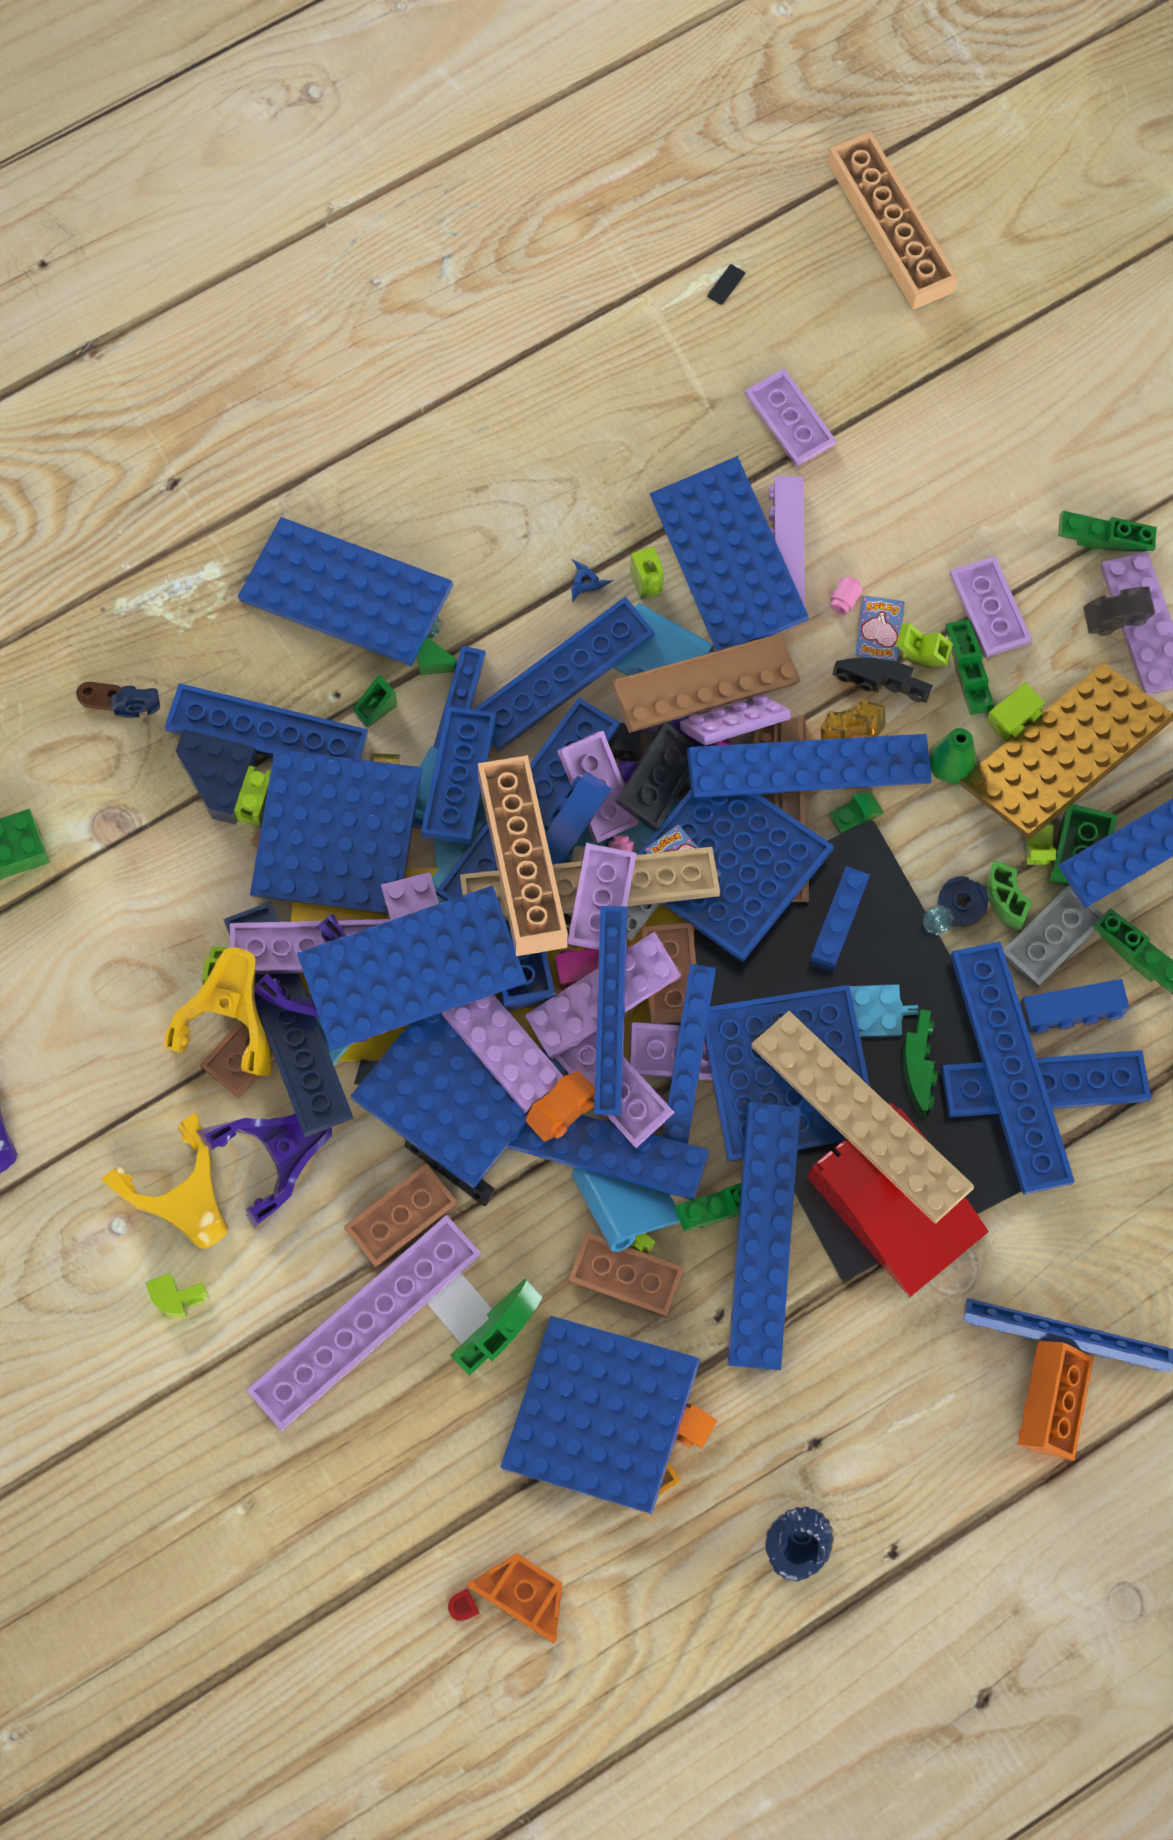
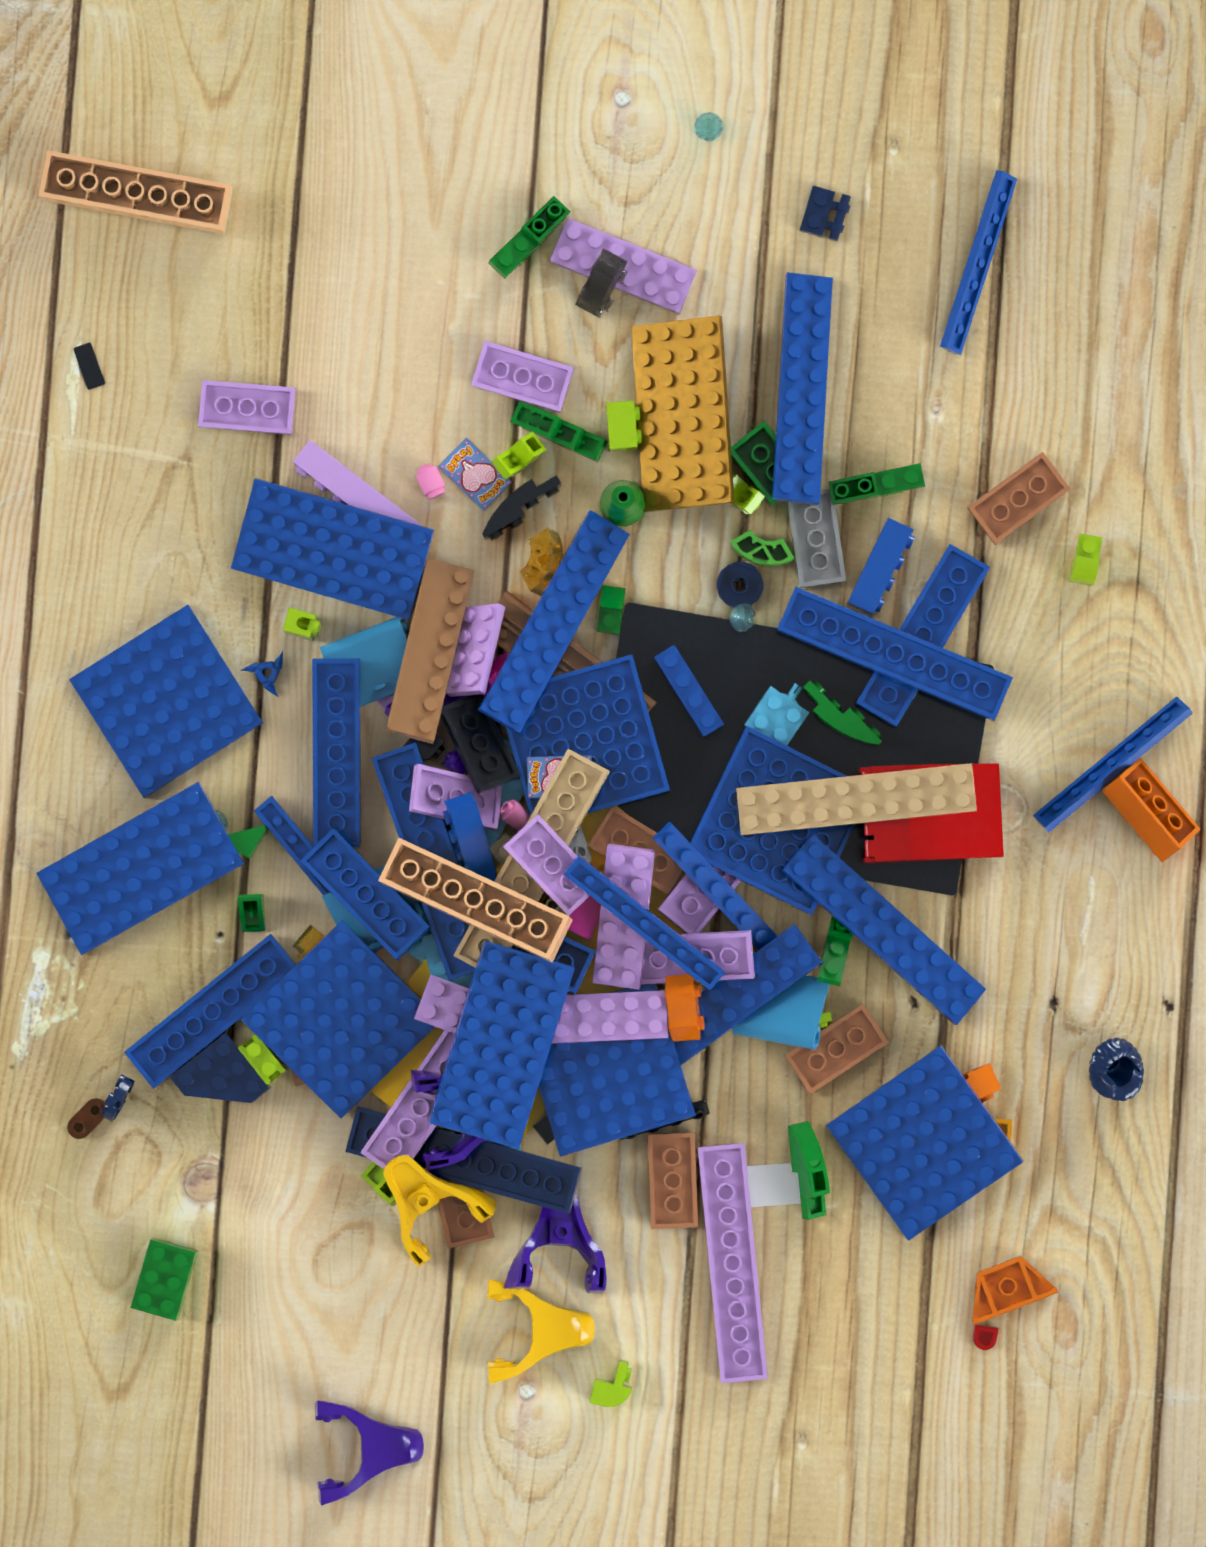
camera: 50 degrees left, 15 degrees up
(500, 521) = (166, 701): none -> blue plate

